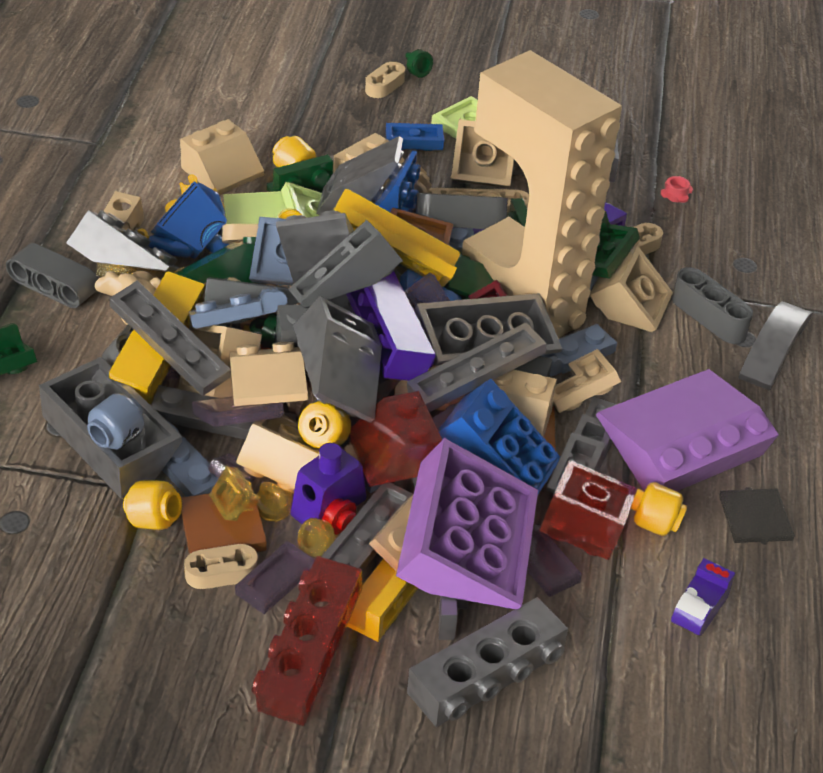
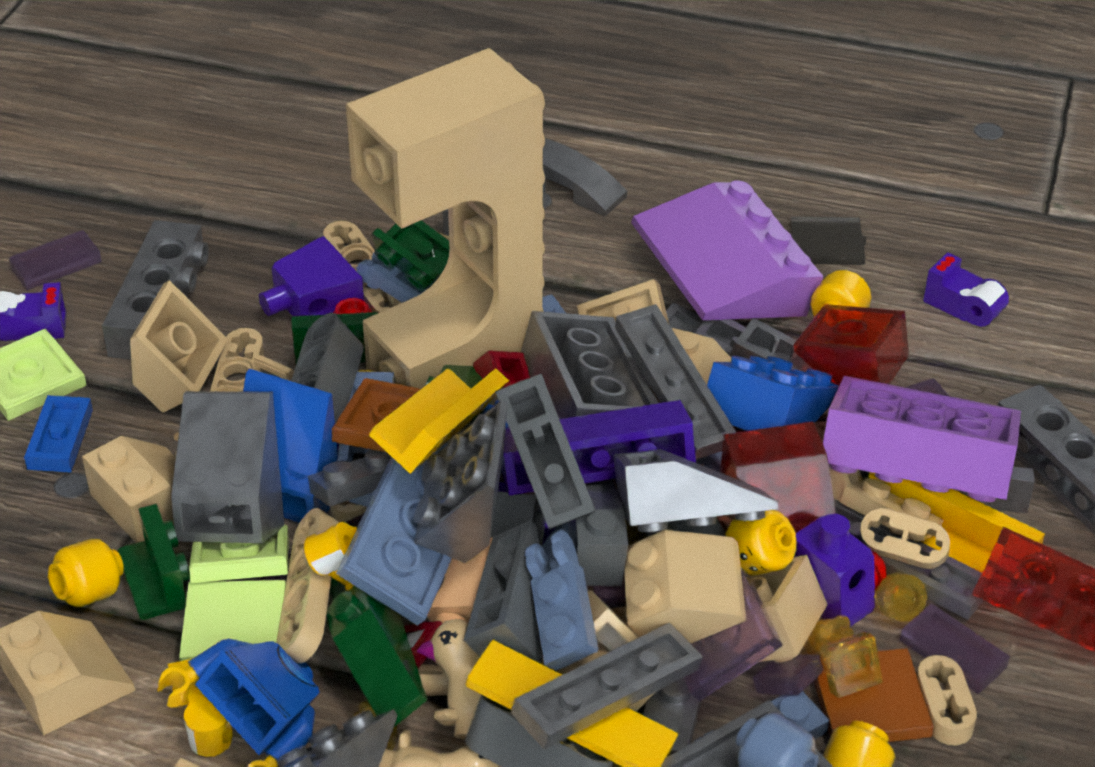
camera: 80 degrees left, 0 degrees up
(359, 525) = (907, 527): none -> tan beam
(677, 189) = (249, 198): coral plate -> none

